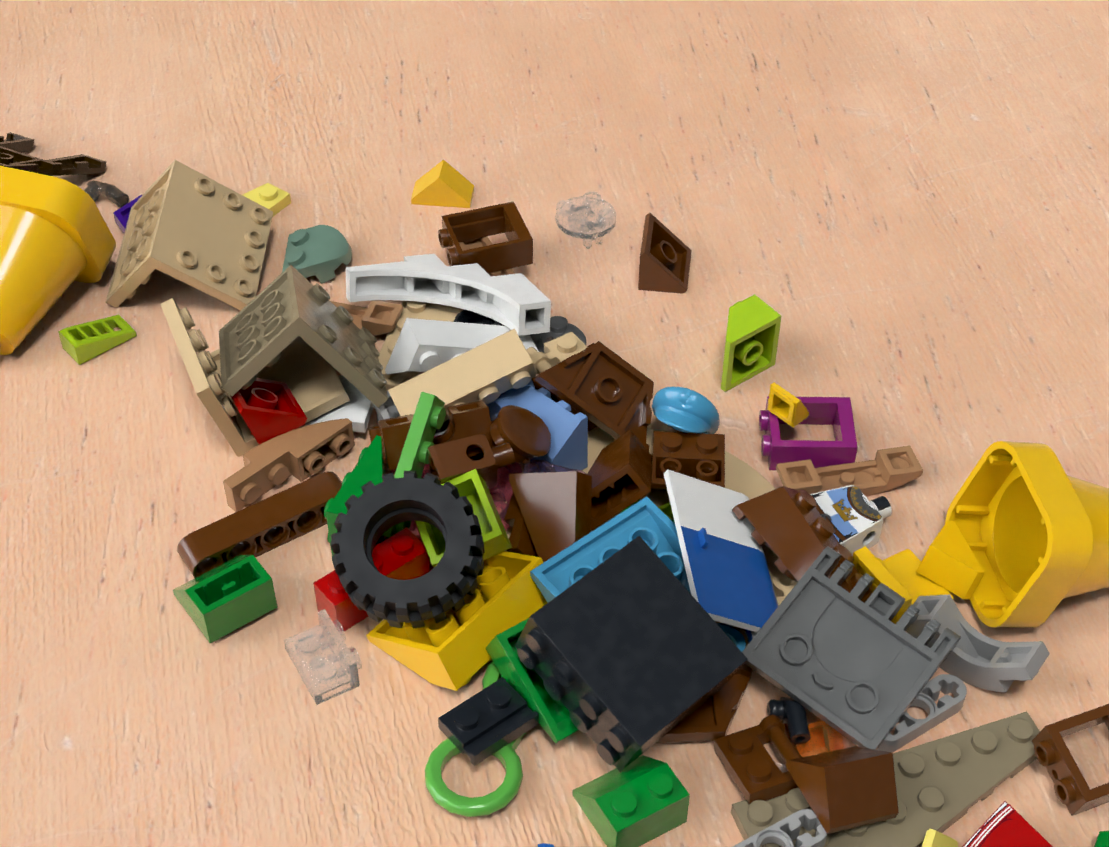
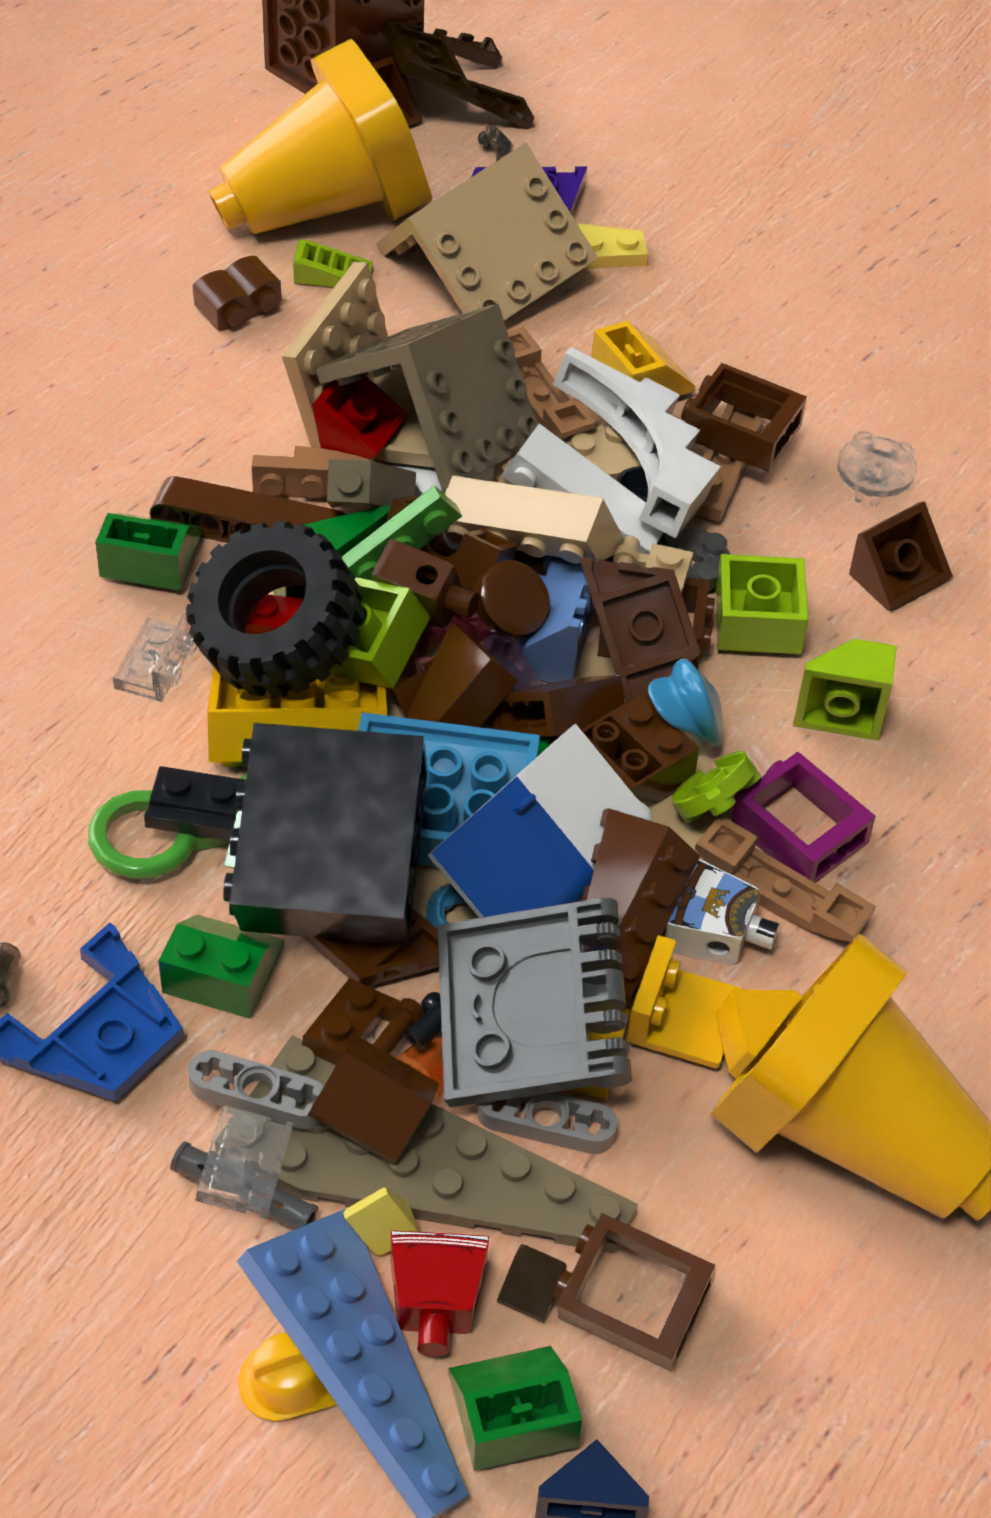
camera: 45 degrees right, 5 degrees up
(57, 395) = (237, 292): none -> reddish brown brick
(317, 252) = (577, 322): sand green slope -> none
(332, 444) = (366, 484): none -> dark tan slope
(370, 249) = (638, 356): none -> yellow slope
(443, 187) = (794, 348): yellow slope -> none
(636, 331) = (761, 604): none -> lime brick
(752, 464) = (715, 788): none -> lime plate
(786, 406) = (793, 770): yellow slope -> none
(976, 657) = (656, 1102): light grey arch -> none
(1042, 806) = (531, 1283): none -> dark brown slope

